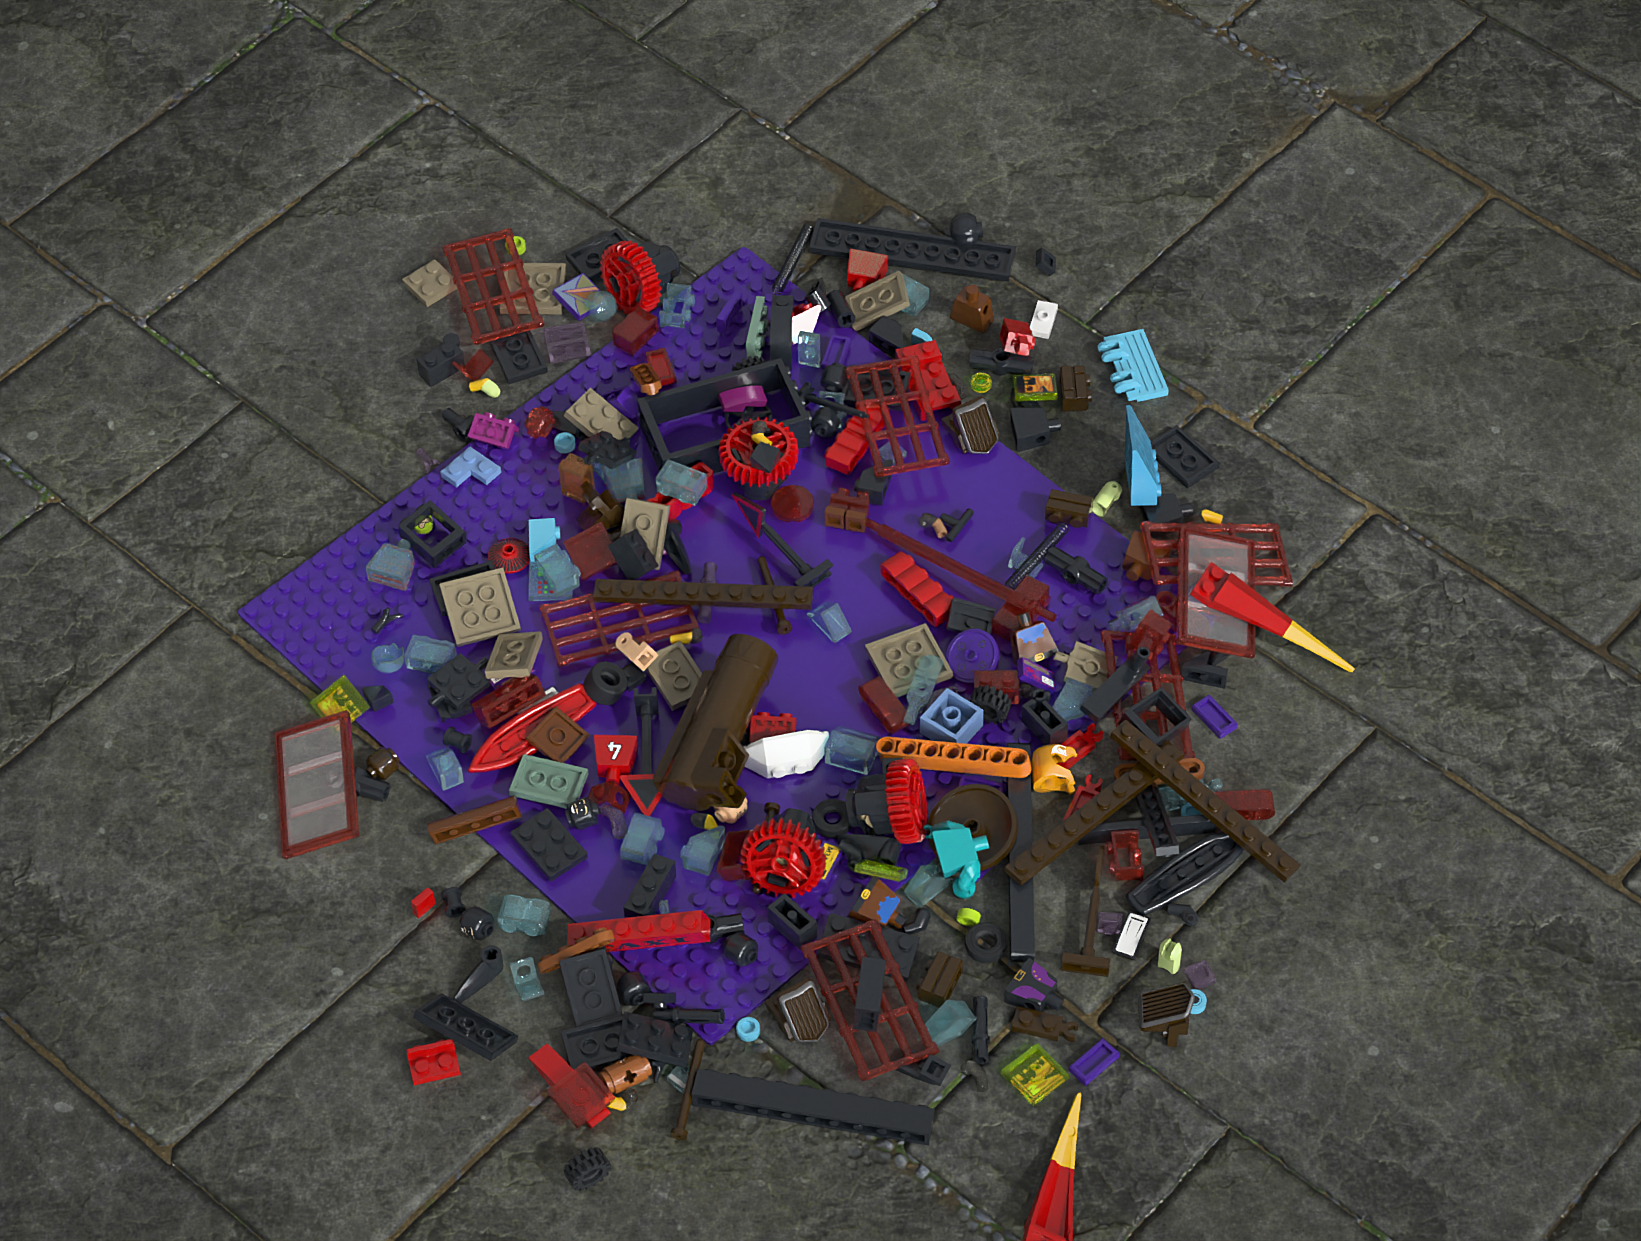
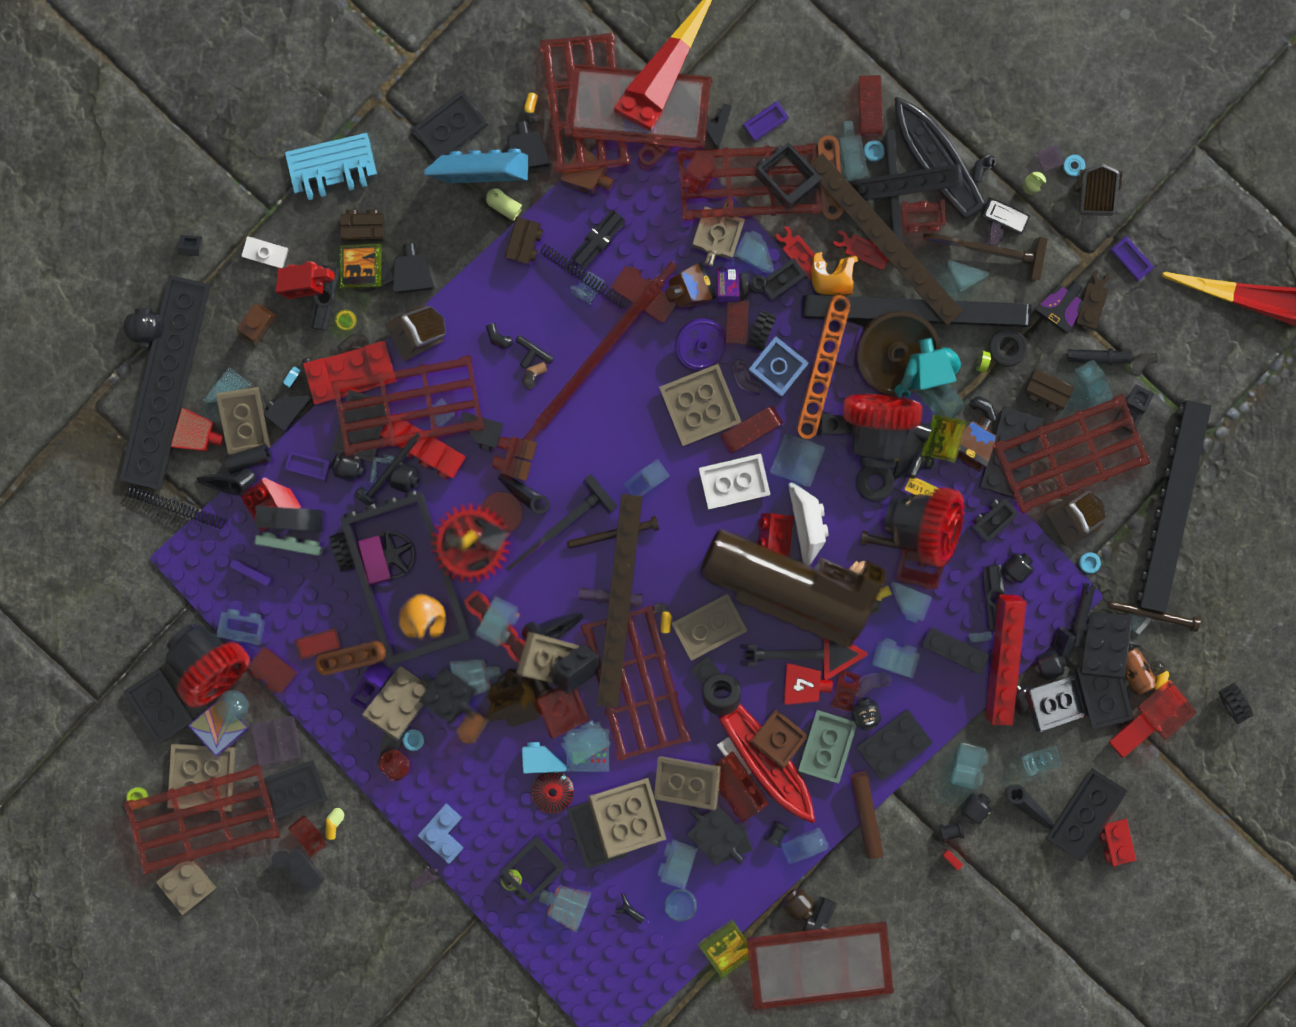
camera: 90 degrees left, 35 degrees up
(377, 697) = (721, 912): black slope -> none
(460, 423) = (384, 843): black pin -> none
(492, 430) = (398, 812): magenta bracket -> none
(583, 945) = (1023, 716): dark orange plate -> none
(639, 654) = (688, 667): light nougat leg -> none
(693, 408) = (420, 612): none -> light orange piece
(806, 527) = (524, 494): none -> black piece
(809, 349) = (311, 491): clear light blue plate -> none
(829, 692) = (734, 481): none -> white plate
(869, 993) = (1085, 452): black window -> none
(917, 587) = (615, 392): red brick -> none
(926, 678) = (727, 389): clear light blue piece -> none
(969, 615) = (657, 343): black plate -> none
(972, 491) = (497, 339): none -> black arm
(1035, 1074) = (1142, 310): clear neon green tile -> none
(1061, 895) = (964, 275): none -> clear light blue slope
(1117, 685) = (750, 210): black piece -> none
(1138, 610) = (662, 184): clear light blue torso -> none
(1205, 801) = (876, 138): dark brown plate -> none

